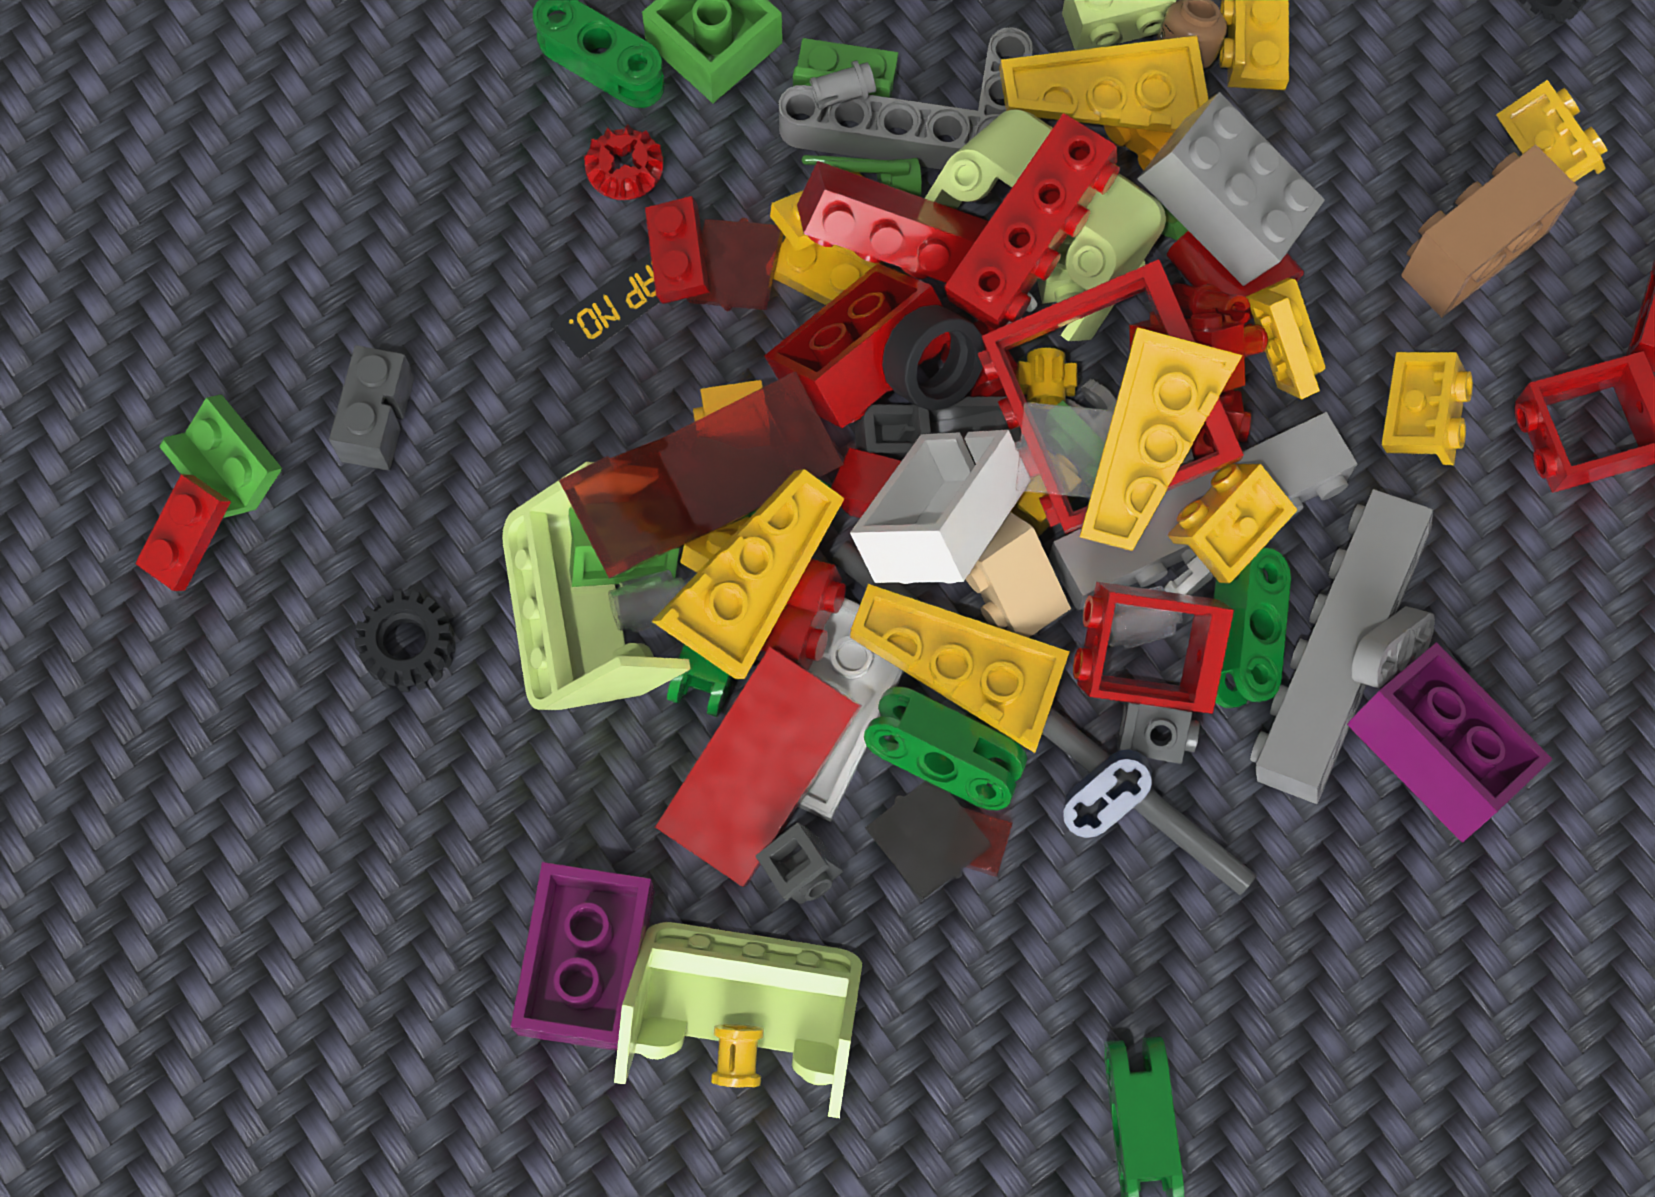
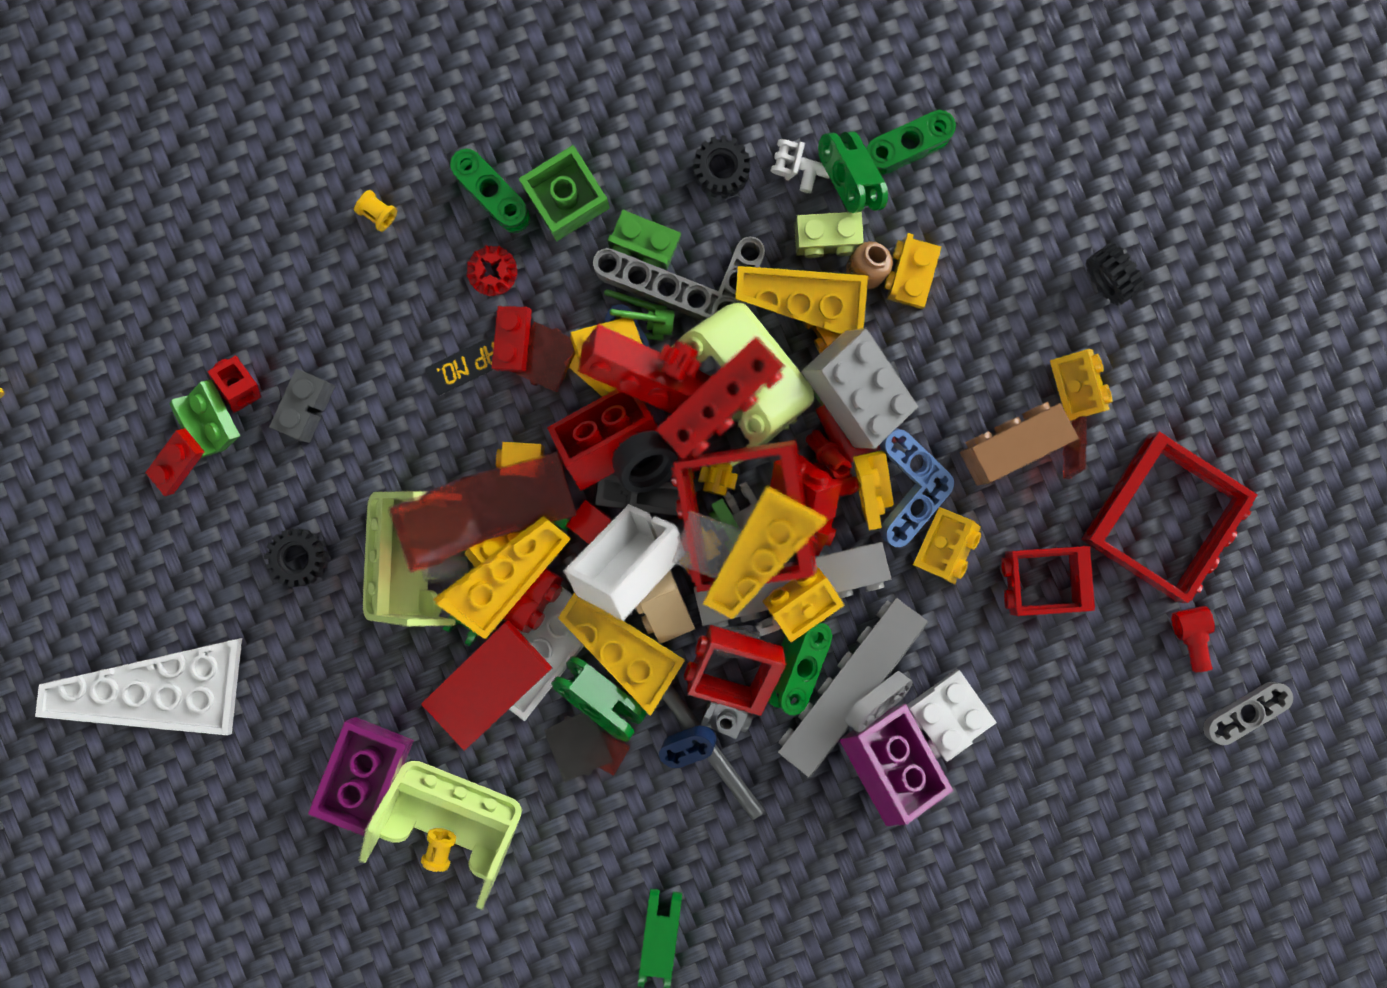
camera: 15 degrees right, 15 degrees up
(223, 902) = (168, 692): none -> white wing
(260, 397) = (244, 389): none -> red brick
(429, 112) = (375, 210): none -> yellow bush
(806, 873) = (497, 751): dark grey brick -> none
(843, 85) = (635, 258): light grey pin -> none
(953, 190) = (679, 361): none -> red gear
(1359, 317) = (924, 482): none -> medium blue beam
(1514, 656) = (950, 715): none -> white plate
(1578, 223) = (1075, 451): none -> clear red piece

